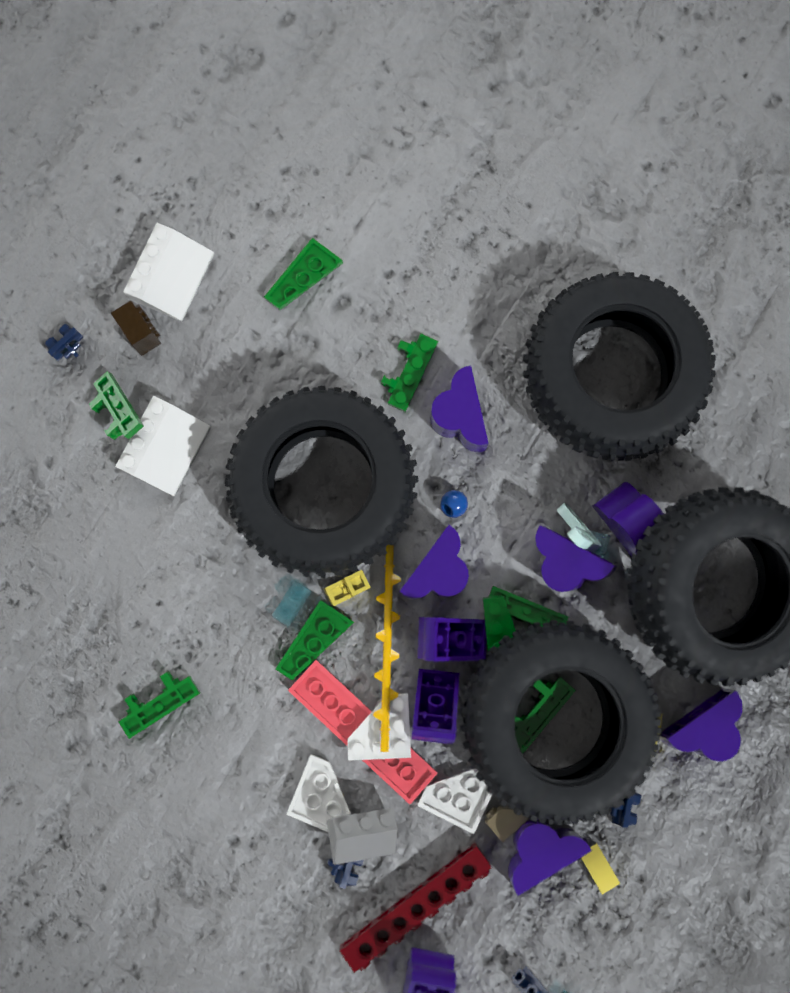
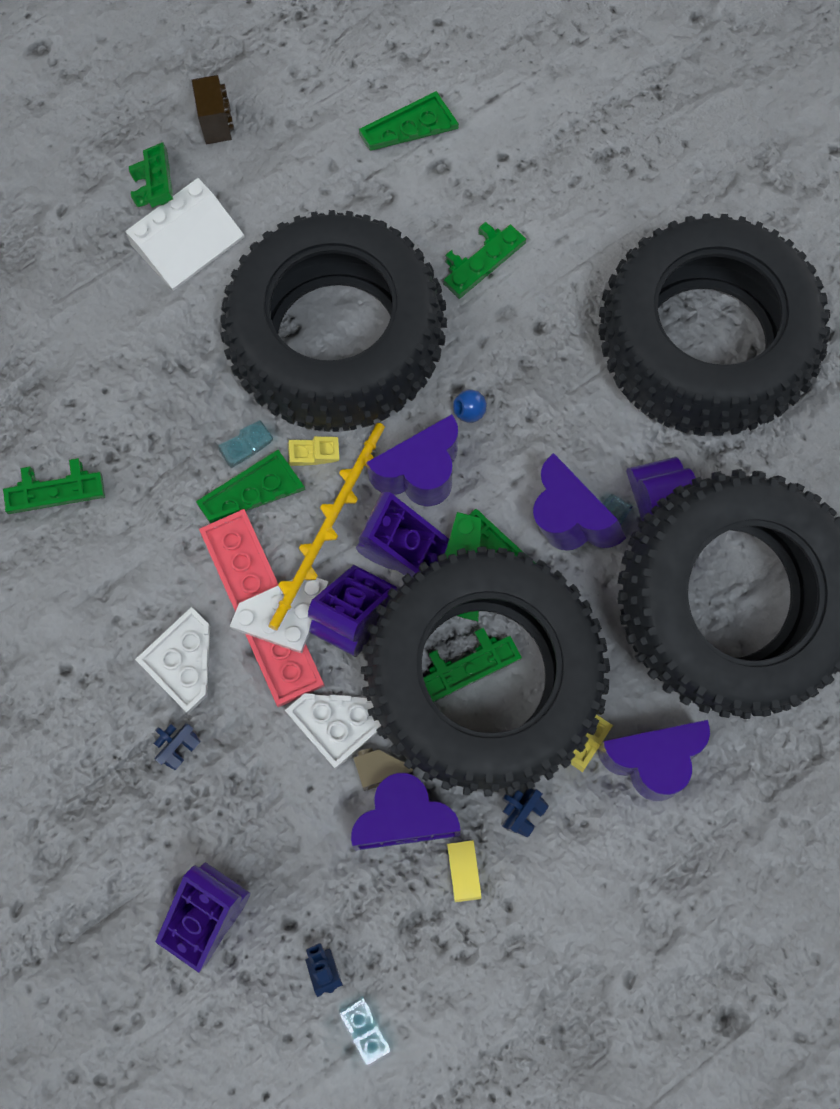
camera: 25 degrees right, 10 degrees down
(66, 345) = (134, 102): dark blue hips -> none
(168, 272) = (271, 72): white slope -> none
(361, 960) = (138, 838): dark red brick -> none
(362, 835) = (208, 712): light grey slope -> none
(459, 412) = (514, 310): dark purple brick -> none
(580, 533) = (596, 480): light aqua beam -> none

